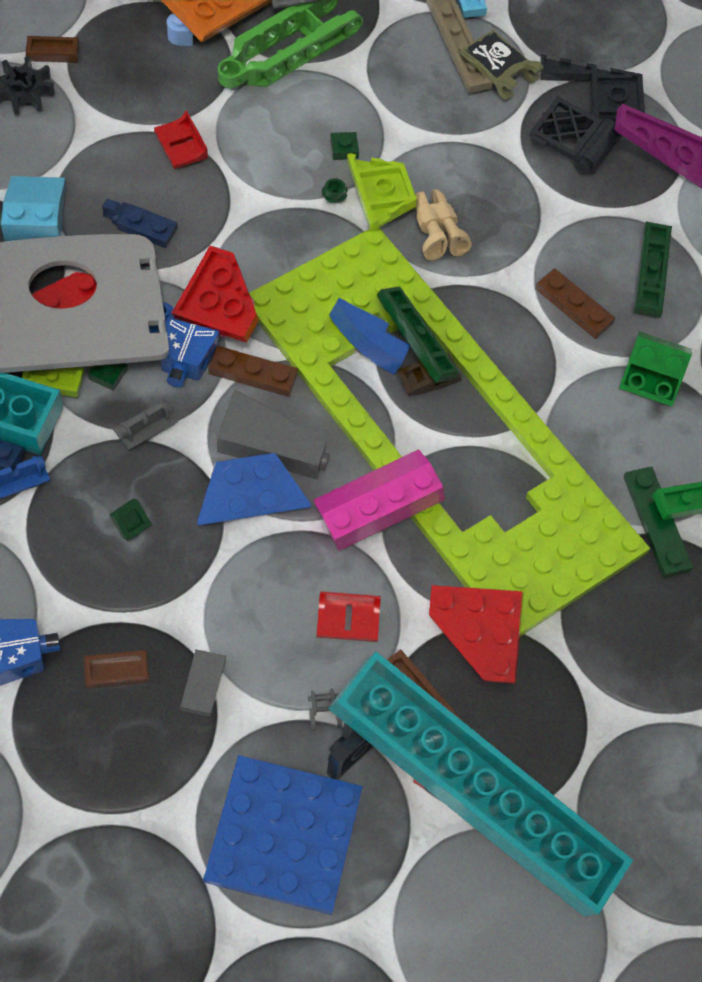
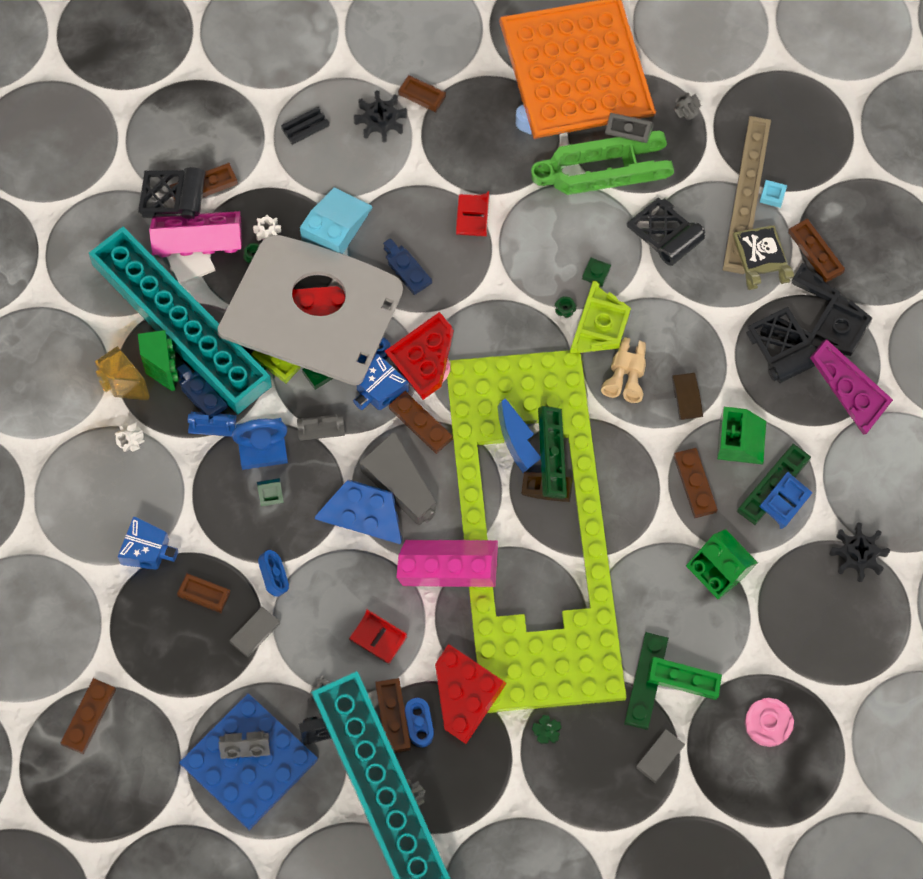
camera: 35 degrees right, 5 degrees up
(57, 884) = (88, 716): none -> reddish brown plate
(88, 469) = (261, 442): none -> blue tile
(187, 606) = (273, 573): none -> blue plate
(286, 807) = (233, 746): none -> dark grey hinge
(409, 82) = (680, 239): none -> black piece
(454, 686) = (419, 723): none -> blue plate
(514, 222) = (687, 396): none -> dark brown slope
(546, 38) = (816, 250): none -> reddish brown plate
(589, 625) = (546, 730): none -> dark green plant
(590, 237) = (741, 436): none -> green slope
(673, 287) = (777, 507): none -> blue piece

